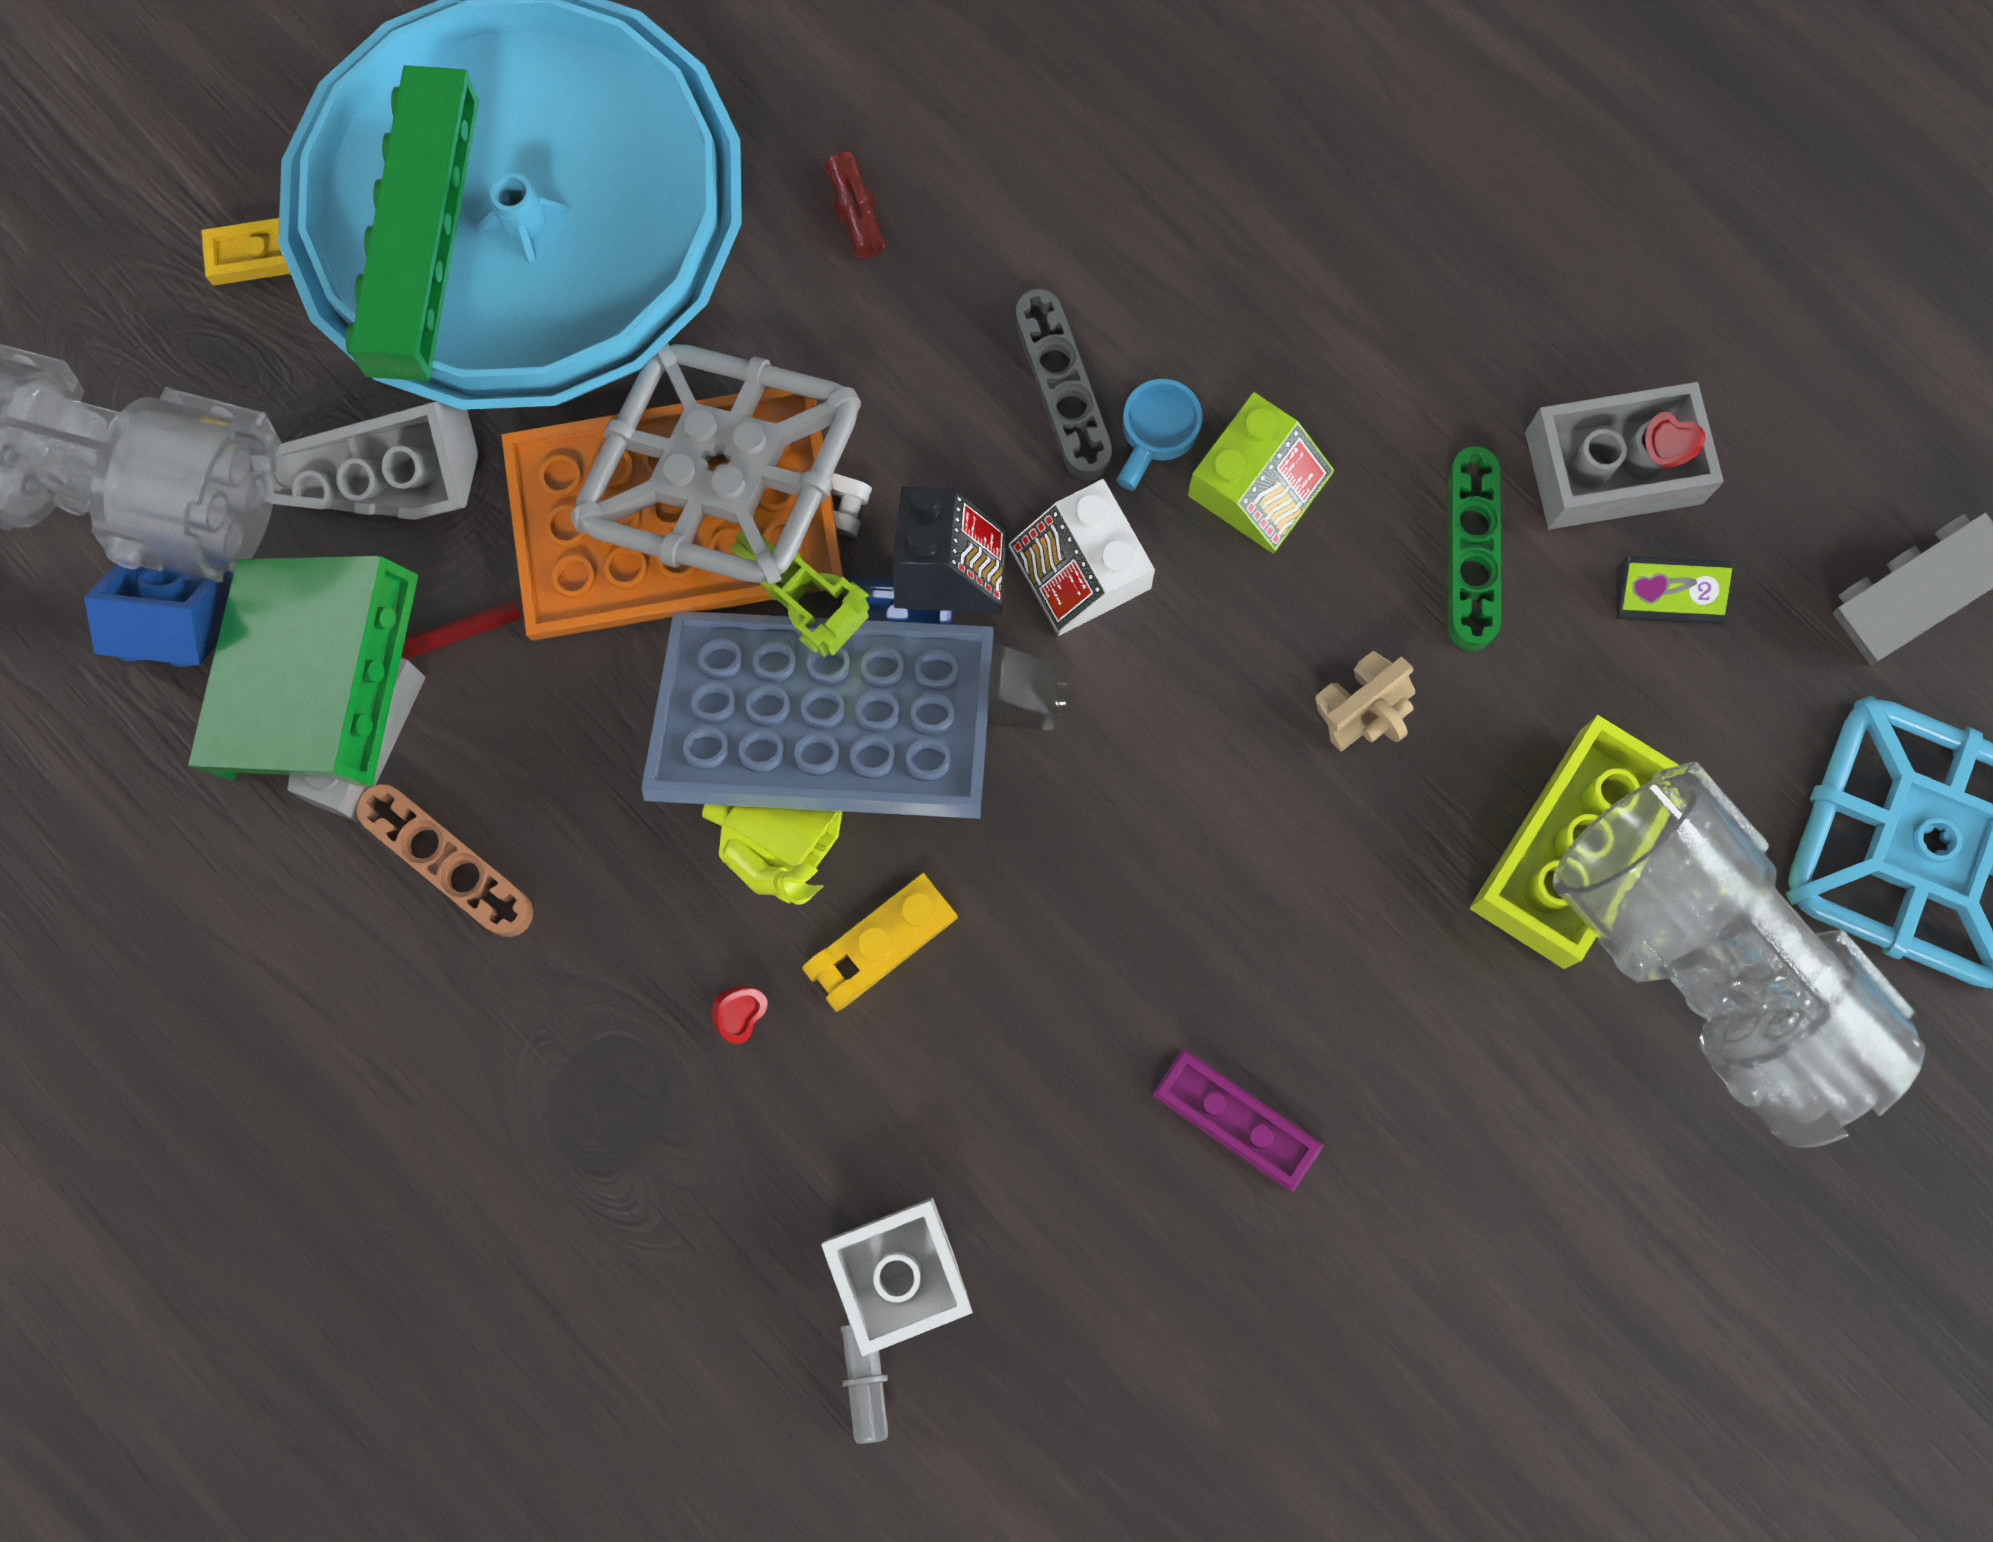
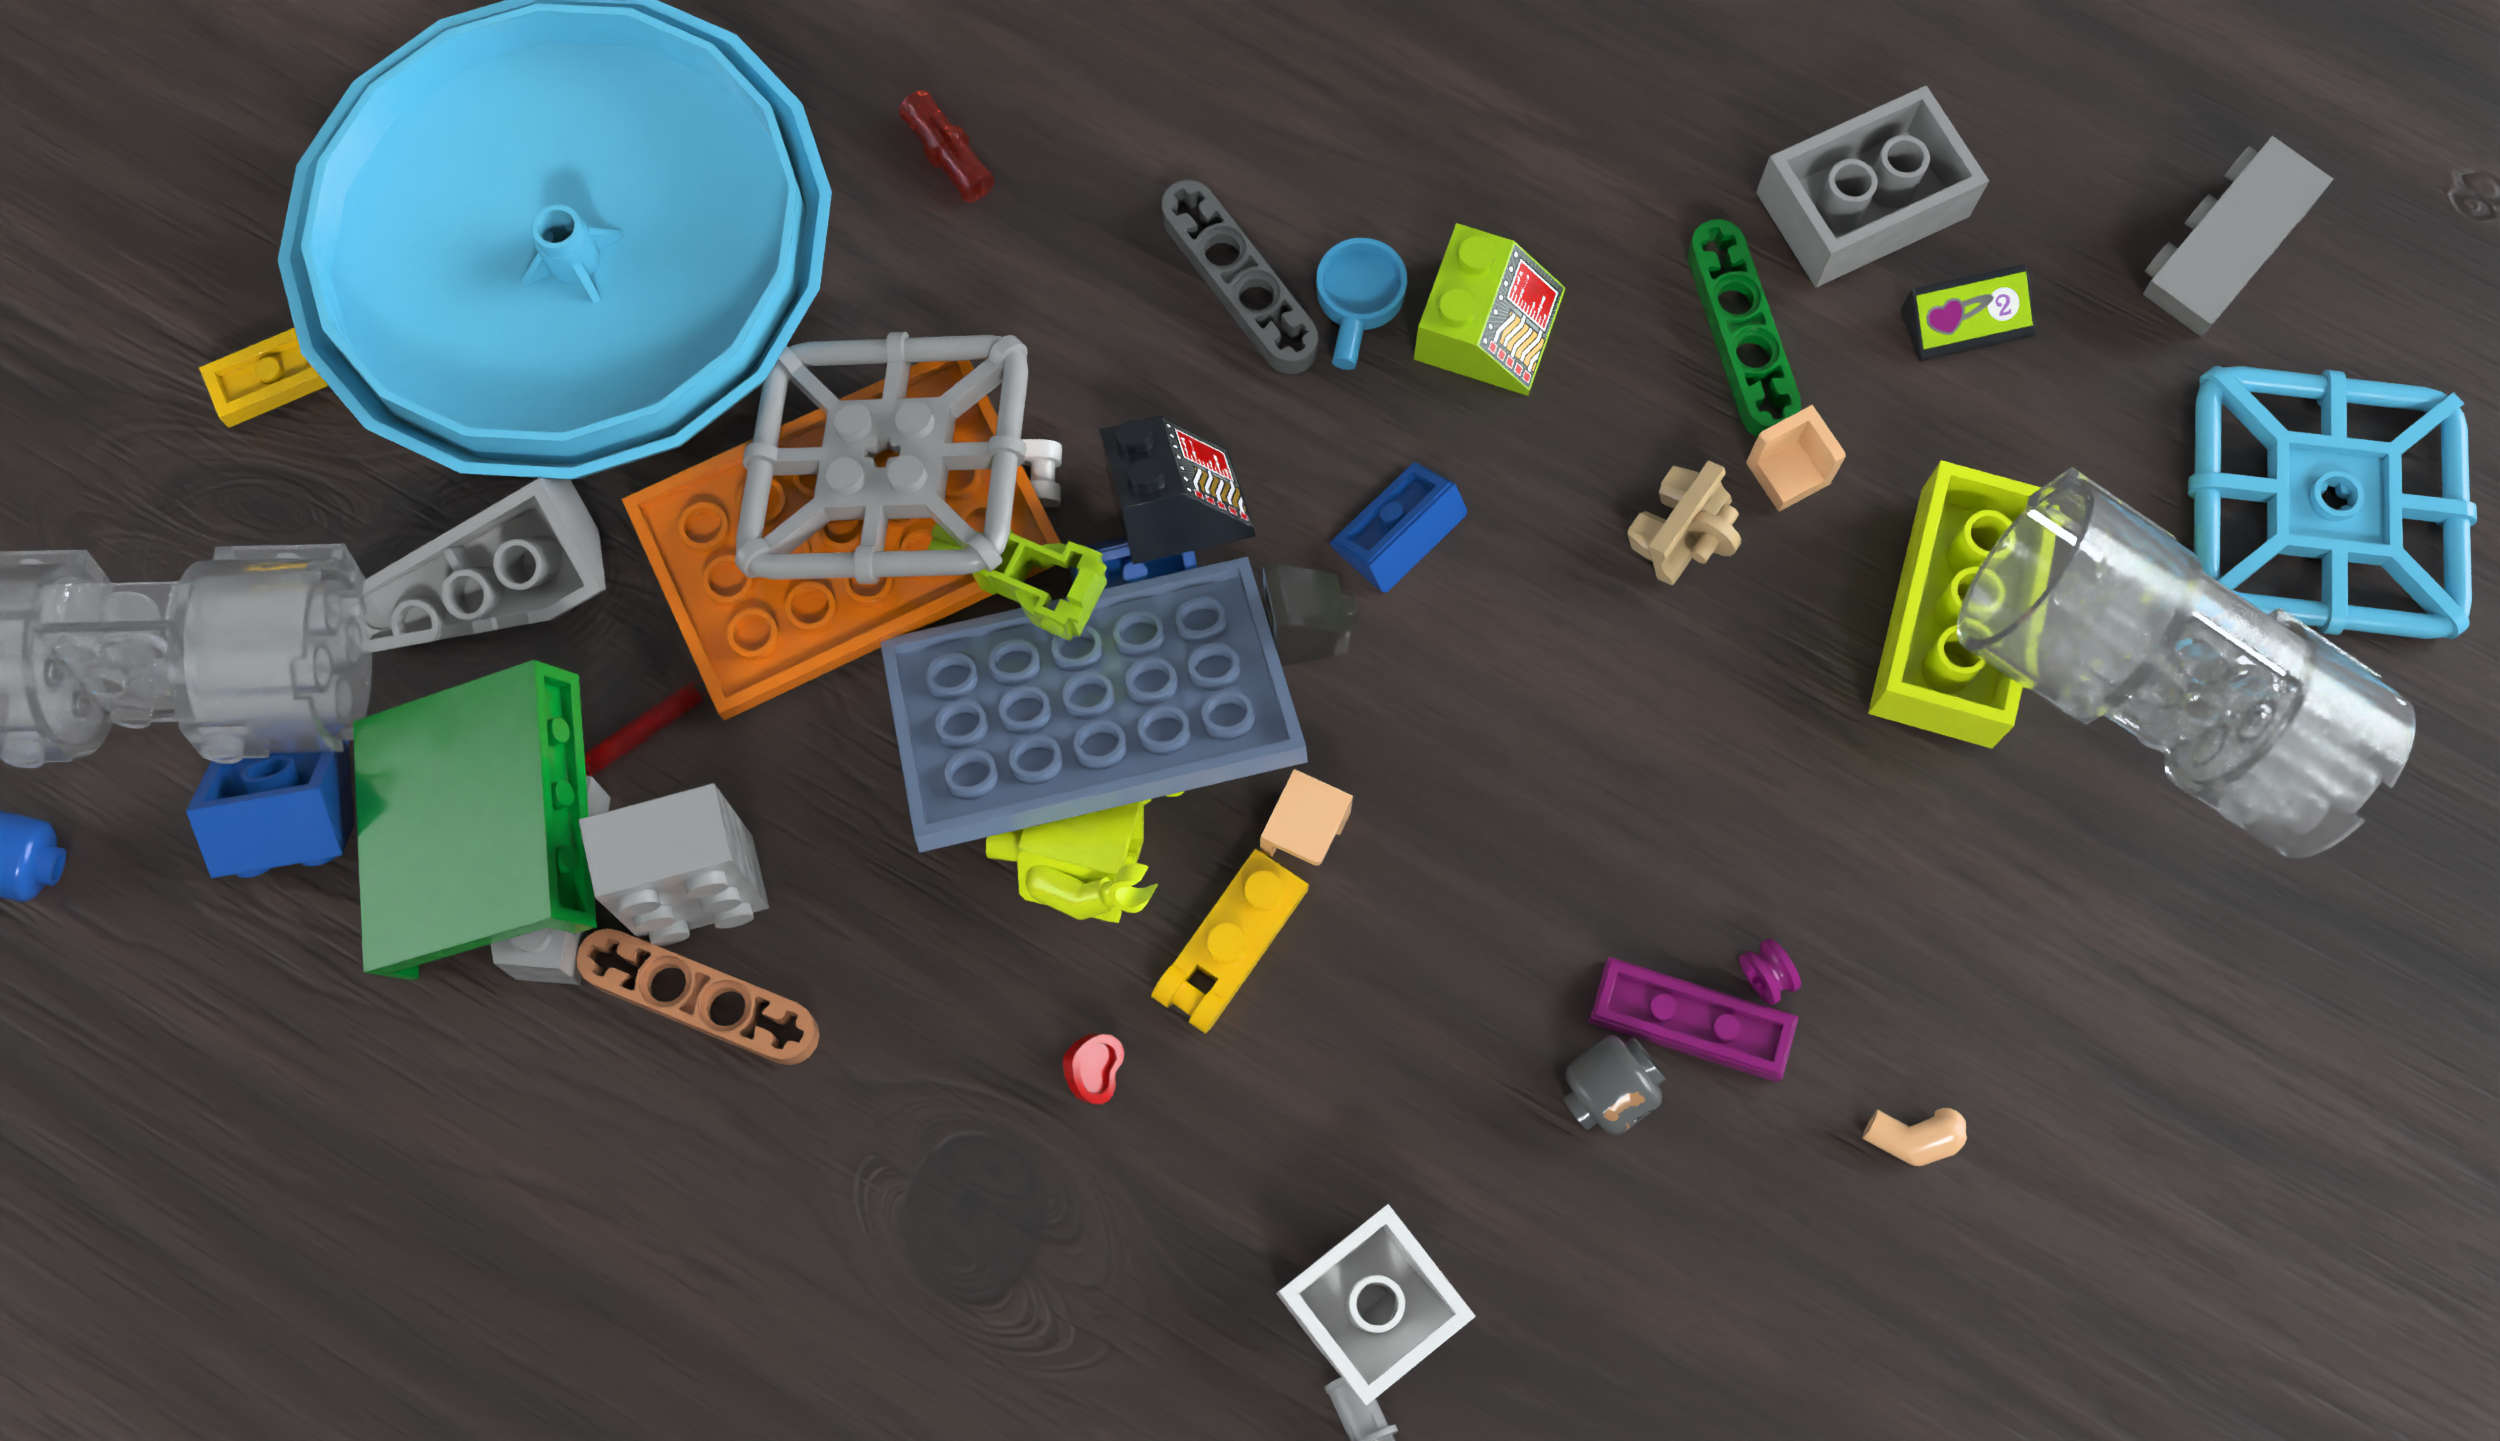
camera: 20 degrees left, 5 degrees down
(413, 224) = (460, 287): green brick -> none
(448, 754) = (674, 865): none -> light grey brick
(970, 862) = (1306, 819): none -> light nougat panel
(1082, 558) = (1323, 454): slope -> none
(1130, 636) = (1400, 526): none -> blue slope
(1151, 1156) = (1613, 1085): none -> dark grey head
(1312, 1101) = (1770, 971): none -> magenta bush
(1391, 1281) = (1919, 1143): none -> light nougat arm
(1478, 674) = (1795, 458): none -> light nougat panel
(1673, 441) = (1923, 151): piece -> none

